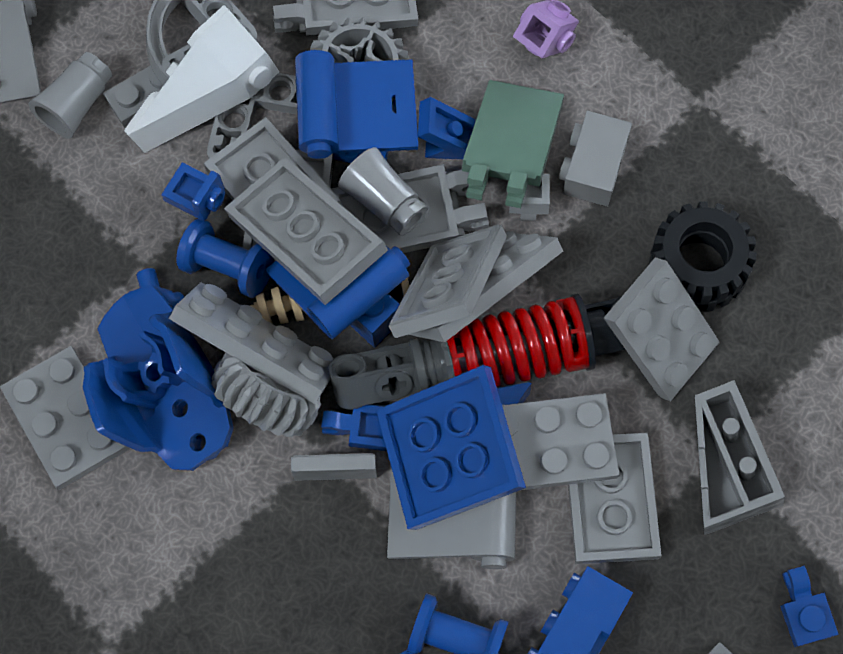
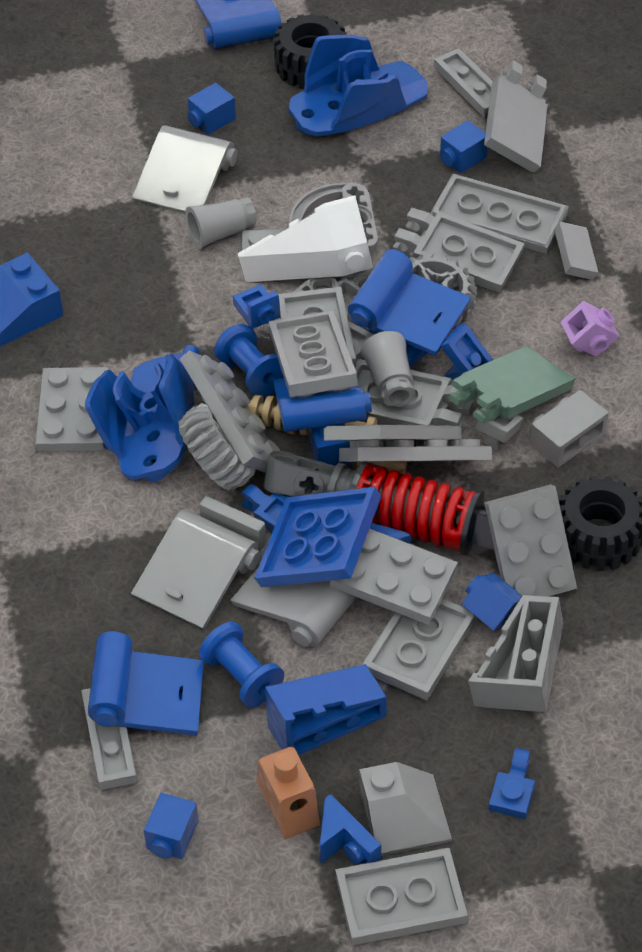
camera: 30 degrees right, 20 degrees down
(329, 538) = (195, 563): none -> light grey door
(659, 412) = (491, 600): none -> blue brick

